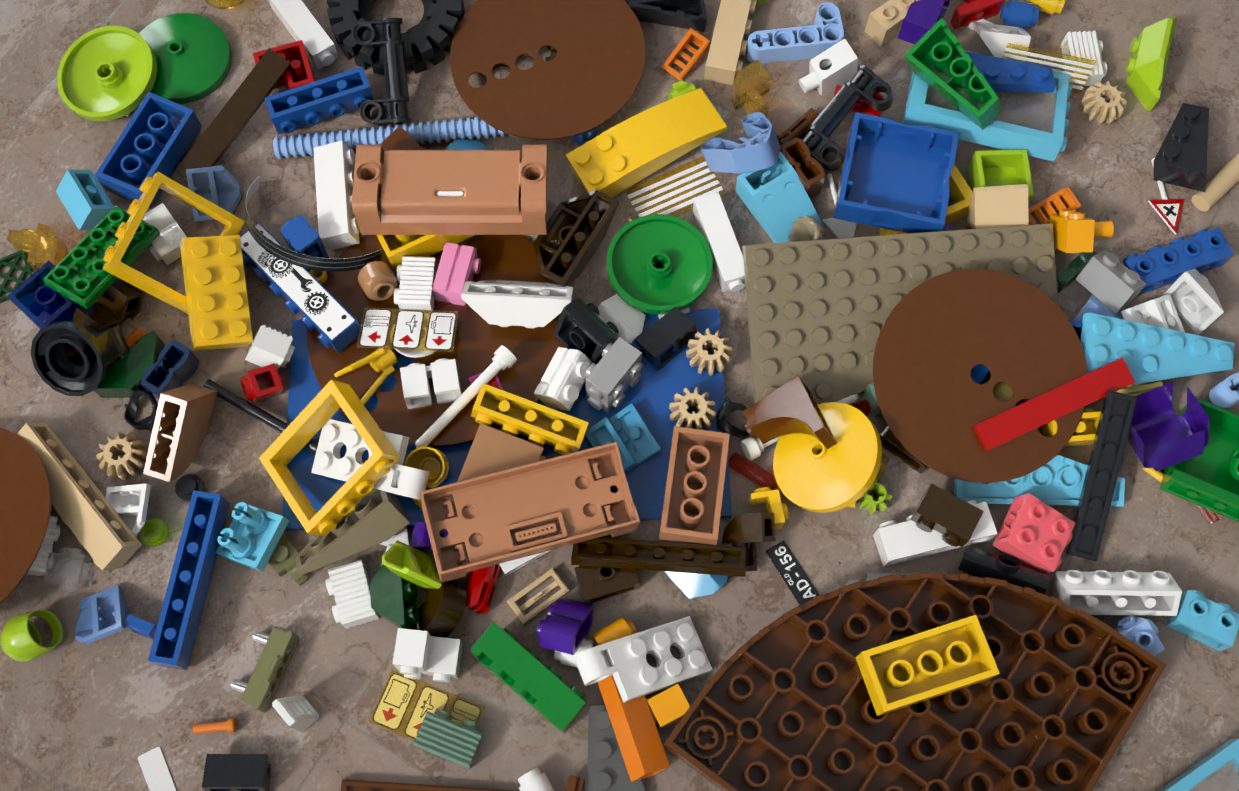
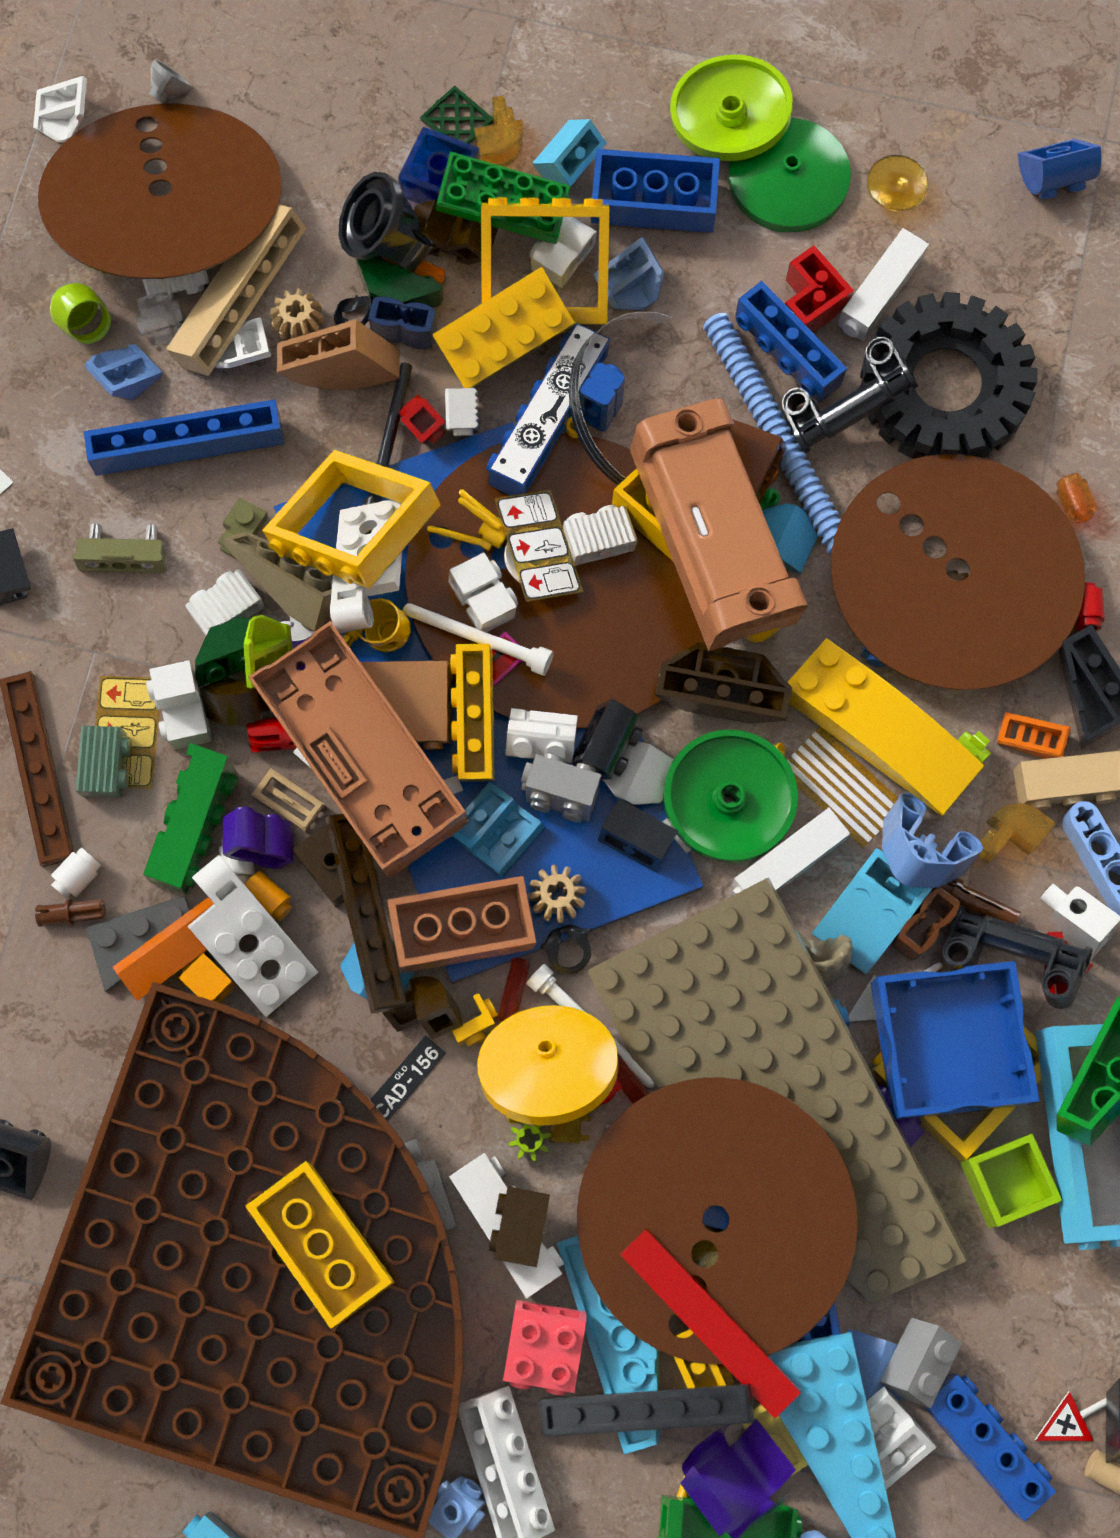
camera: 70 degrees right, 5 degrees up
(140, 626) = (122, 409): blue tile -> none
(154, 532) = (227, 383): clear neon green plate -> none
(186, 484) = (287, 396): black plate -> none
(229, 726) = (52, 540): orange piece -> none
(236, 113) = (734, 260): dark brown tile -> none
(251, 536) = (251, 478): medium azure plate -> none
(296, 712) = (80, 596): white slope -> none
(334, 195) = (706, 384): white brick -> none
(377, 280) = (587, 491): medium nougat head -> none
(455, 267) = (629, 572): bright pink brick -> none
(516, 302) = (617, 647): white wedge -> none
(700, 356) = (650, 893): tan gear -> none
(786, 412) = (591, 1005): reddish brown arch -> none
(998, 207) = (961, 1186): tan slope -> none
(1003, 568) = (486, 1323): black piece -> none
(1061, 200) = (1024, 1279): orange slope -> none
(1073, 269) = (923, 1310): clear green piece -> none
(1076, 232) = (971, 1295): light orange brick -> none
(1195, 300) = (942, 1482): white slope -> none

